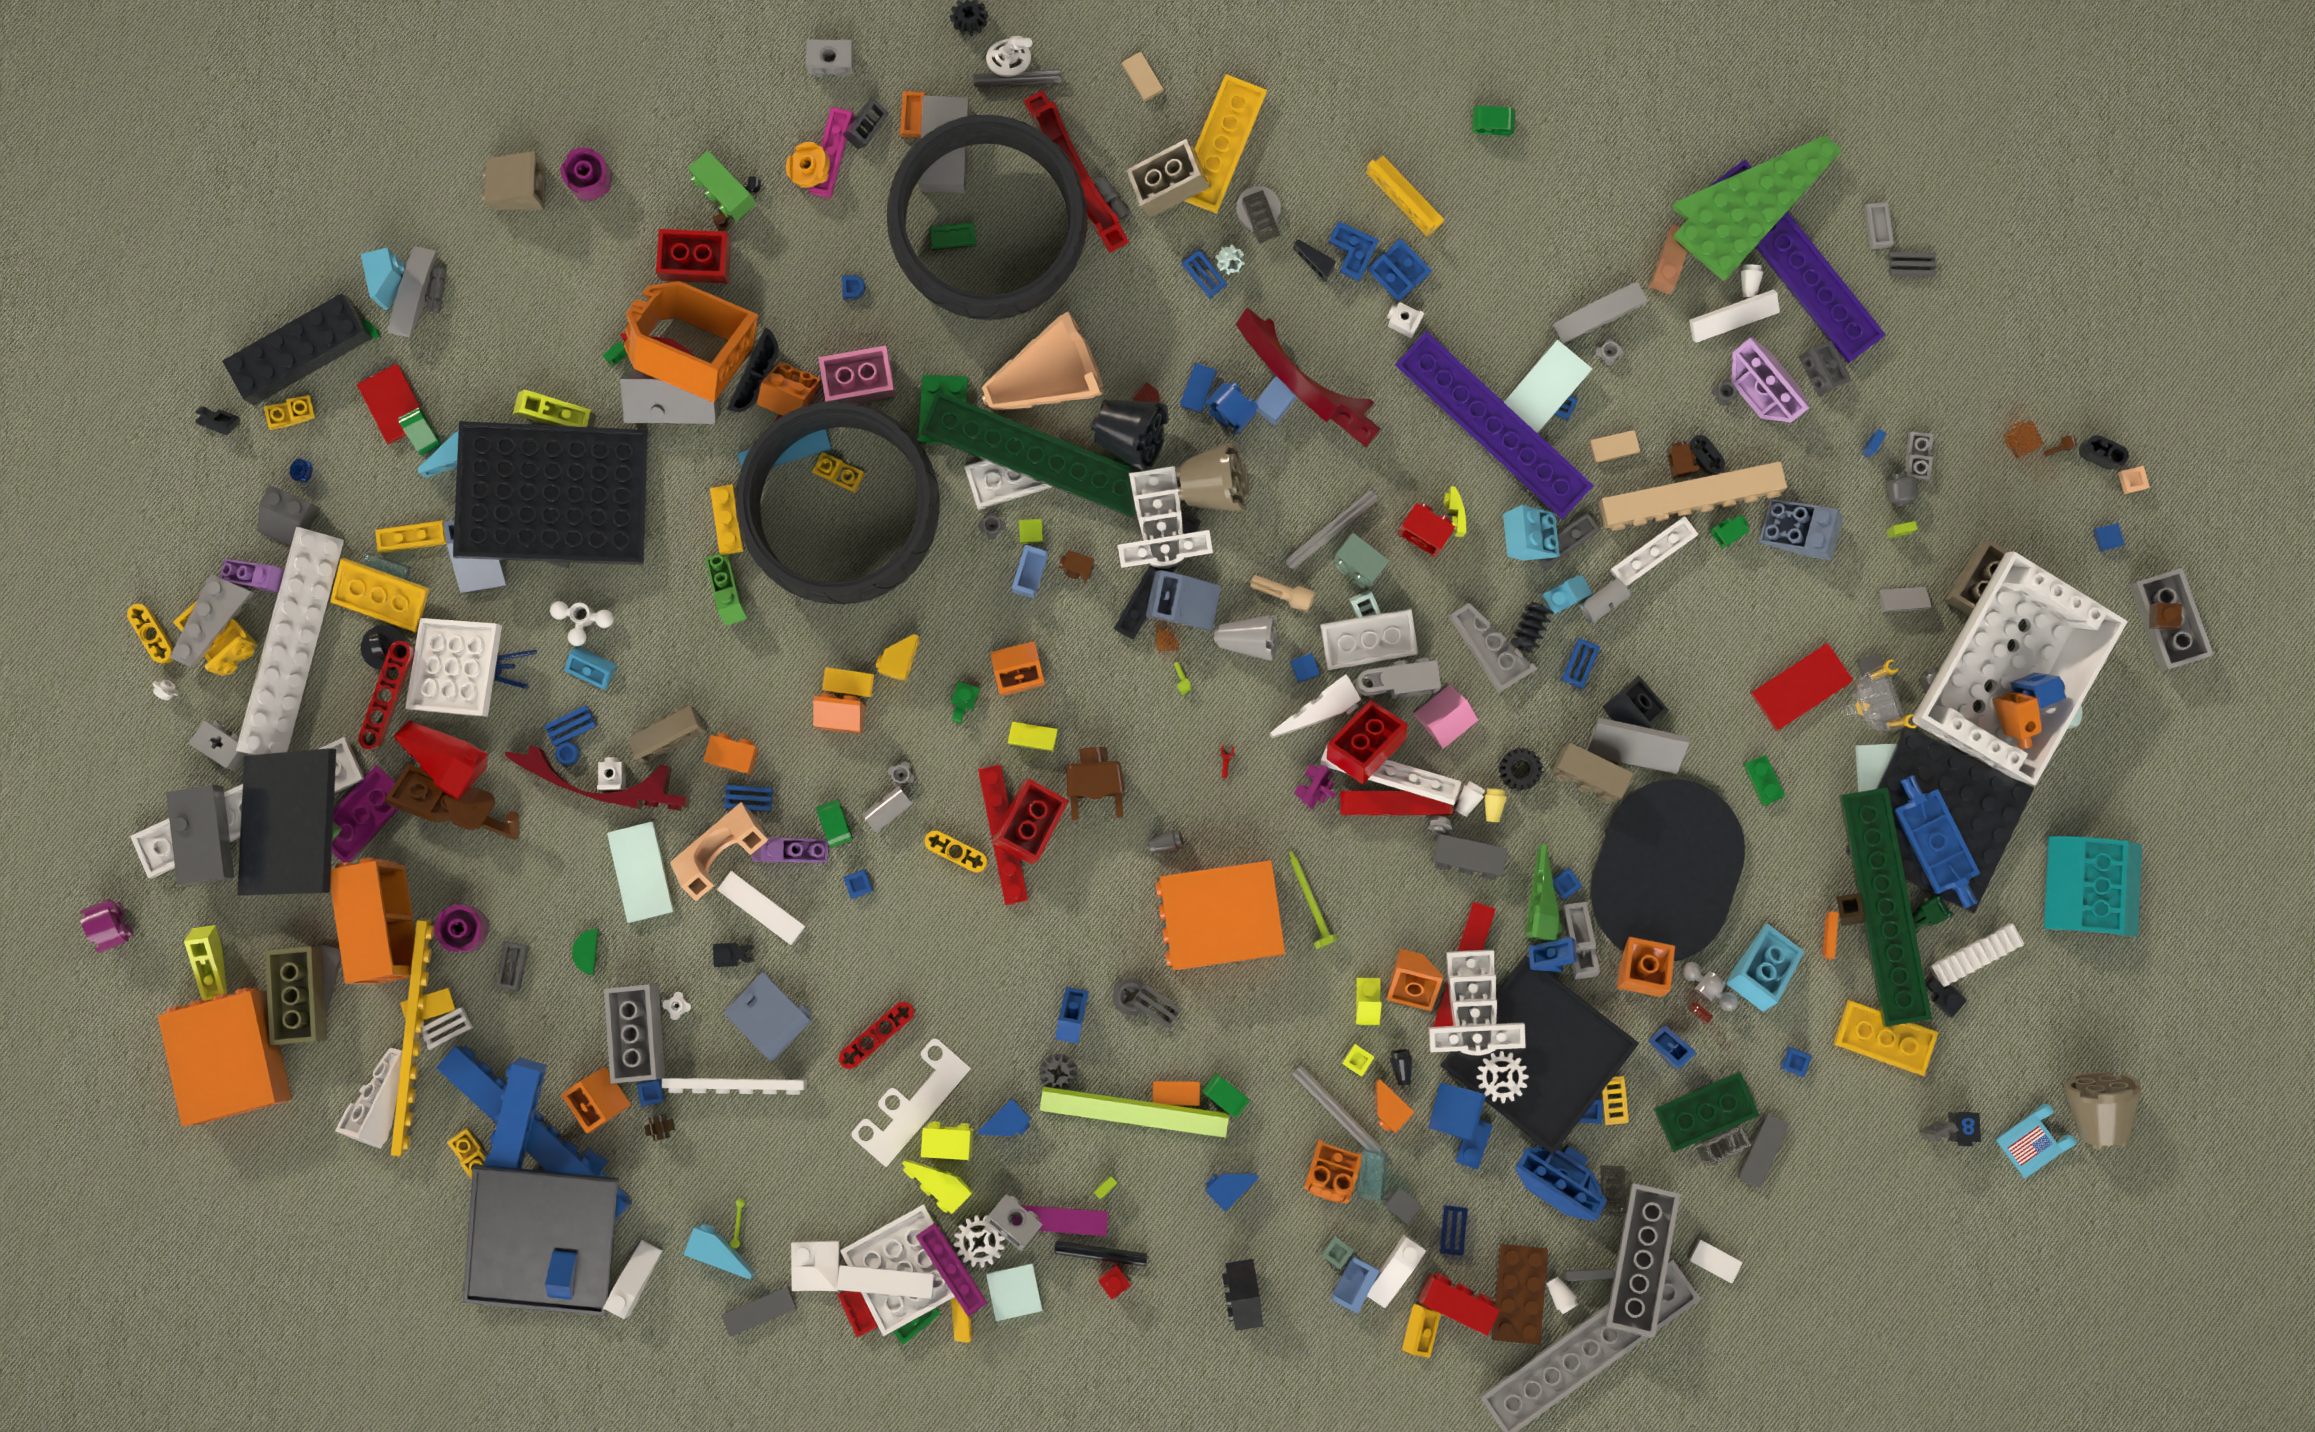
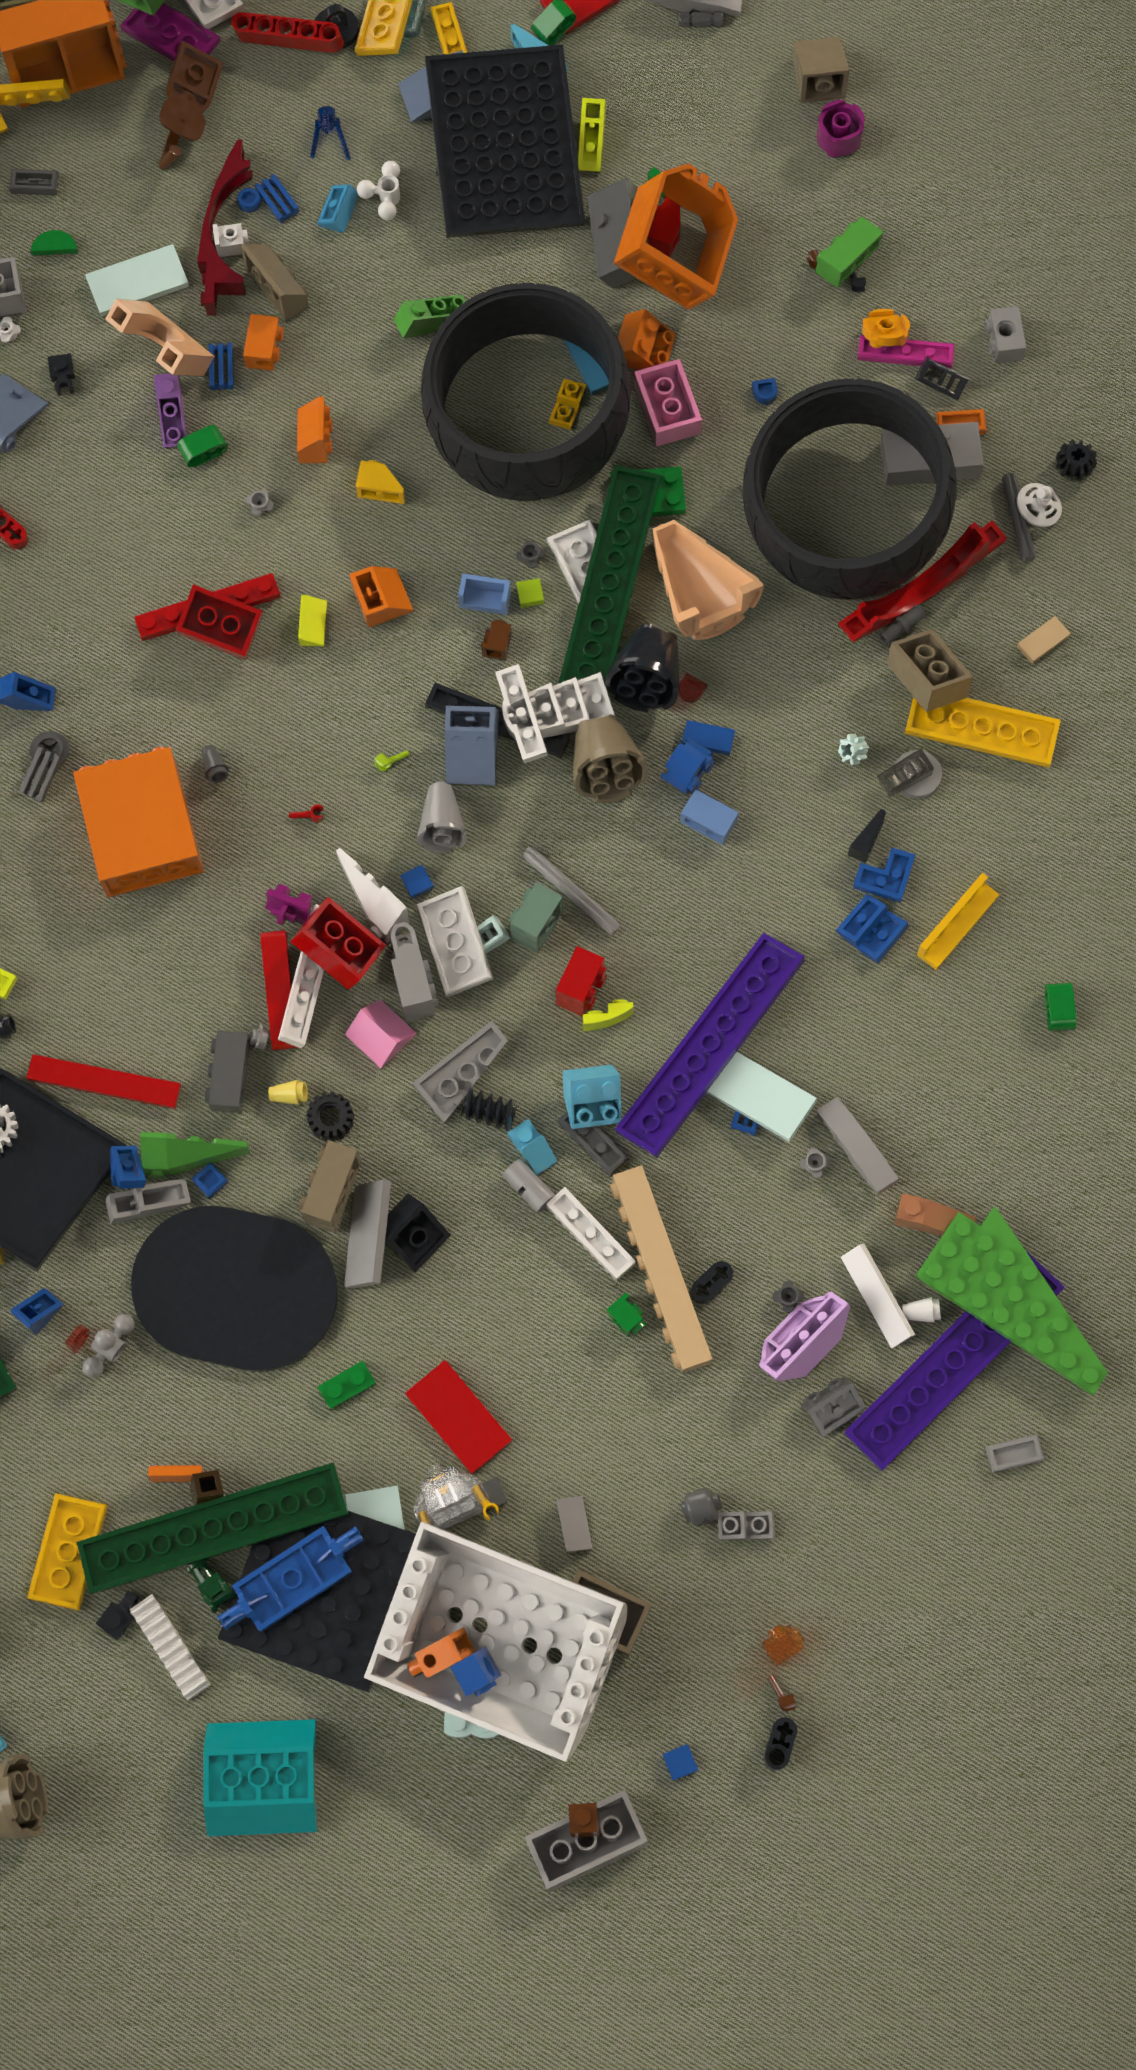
camera: 85 degrees right, 10 degrees down
(447, 759) = (230, 89): red wedge -> none
(448, 933) = (64, 129): magenta brick -> none
(453, 667) = (320, 83): white plate -> none
(693, 256) = (770, 235): red brick -> none
(755, 372) = (664, 309): black brick -> none
(761, 908) = (110, 393): white tile -> none
(848, 682) = (348, 439): yellow slope -> none
(858, 884) = (143, 478): blue tile -> none
(884, 812) = (221, 492): light grey pin -> none
(943, 838) = (184, 554): yellow beam -> none
(952, 236) = (834, 476): green plate -> none
(963, 698) = (345, 552): green plate -> none
(1095, 779) = (270, 680): reddish brown piece -> none
(1166, 640) = (430, 739): clear orange tile -> none
(1215, 288) = (821, 743): blue tile -> none
(1298, 598) = (491, 862): tan piece -> none
(1327, 938) = (126, 937): lime piece -> none
(1343, 410) = (699, 883): dark red slope -> none
(1368, 1001) = (64, 987): neon yellow slope -> none
(1405, 327) = (814, 945): white brick -> none
(1414, 981) = (88, 1026): orange slope -> none
(1469, 798) = (293, 1066): white cone -> none
(1474, 1008) = (61, 1089): white slope -> none
(1573, 682) = (453, 1179): blue tile -> none
(1614, 446) = (707, 1180): tan tile -> none
(1646, 967) = (122, 1270): orange slope -> none
(1681, 460) = (700, 1253): reddish brown brick -> none
(1765, 968) = (135, 1405): medium azure slope -> none
(1796, 1062) = (33, 1452): blue tile -> none
(1802, 528) = (639, 1397): sand blue slope -> none
(1873, 443) = (752, 1469): blue tile -> none
(1902, 529) = (654, 1511): lime tile -> none
(1912, 256) = (984, 1496): dark grey tile -> none
(2133, 480) = (752, 1784): light nougat plate -> none

